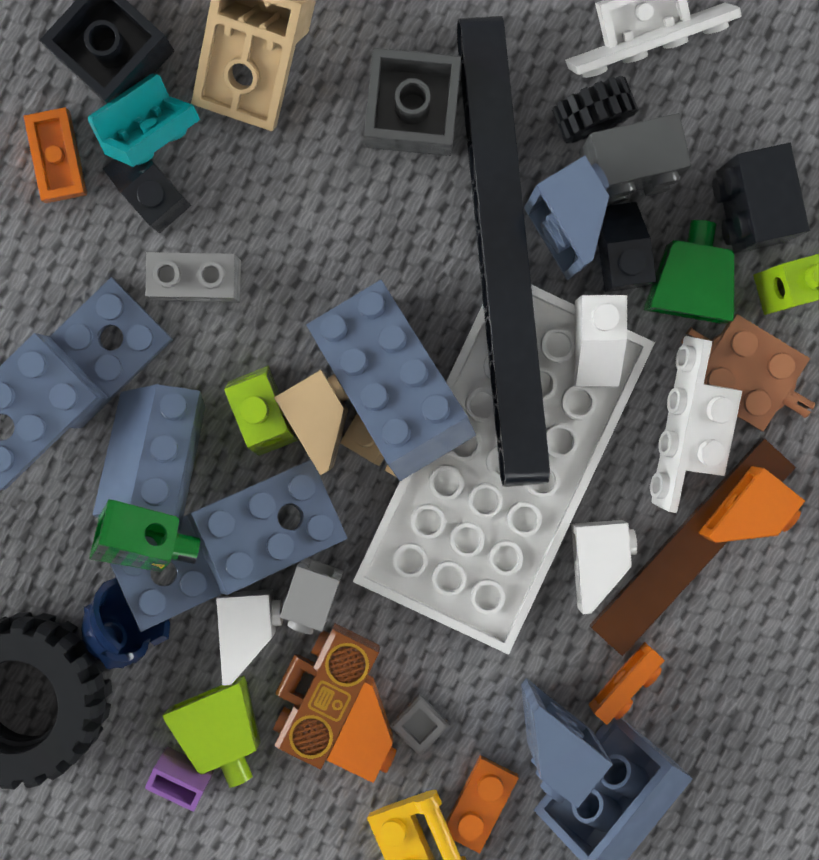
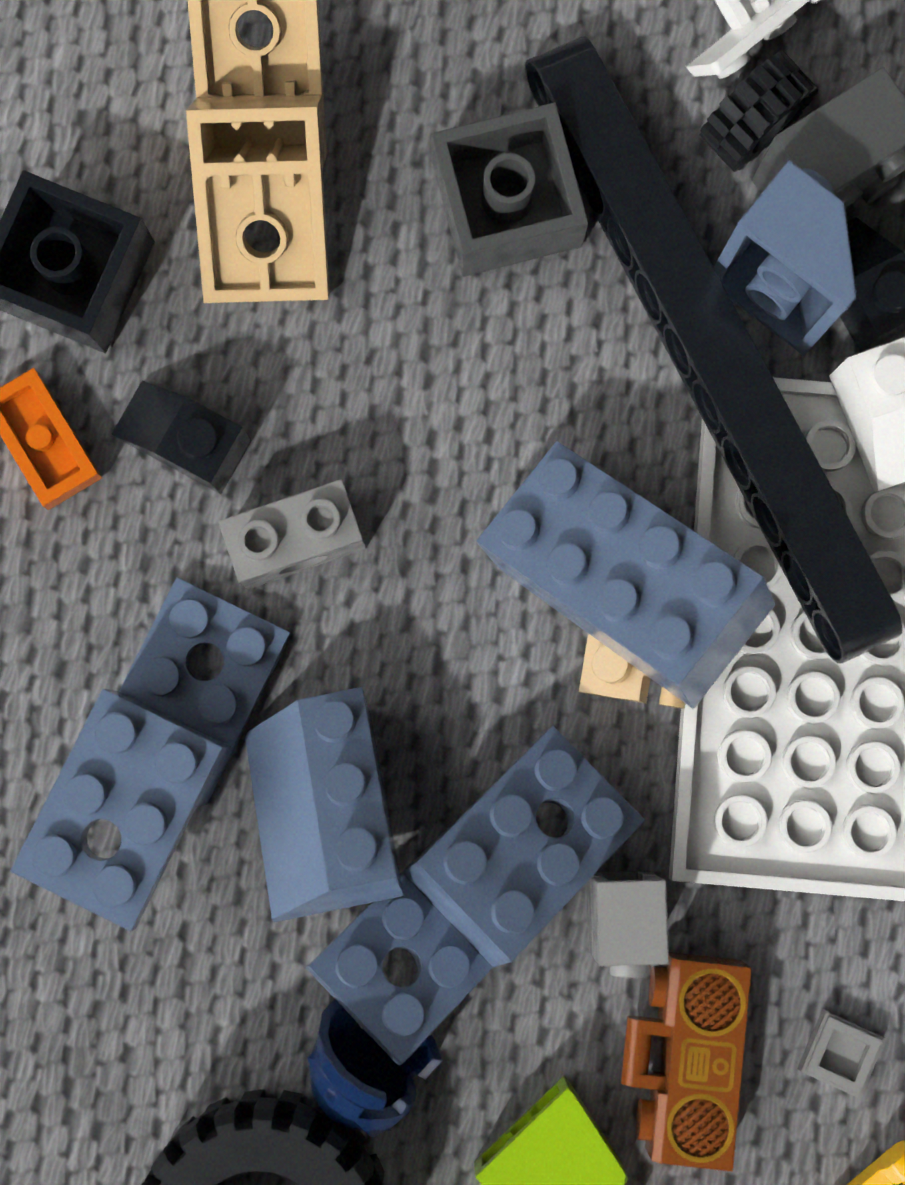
camera: 20 degrees left, 5 degrees down
(122, 538) = (357, 925): green torso -> none
(141, 121) = (147, 348): teal bracket -> none
(245, 627) = (546, 1006): white slope -> none
(258, 413) = (455, 685): lime torso -> none
(317, 416) = (541, 662): tan slope -> none
(365, 736) = (777, 1102): orange slope -> none

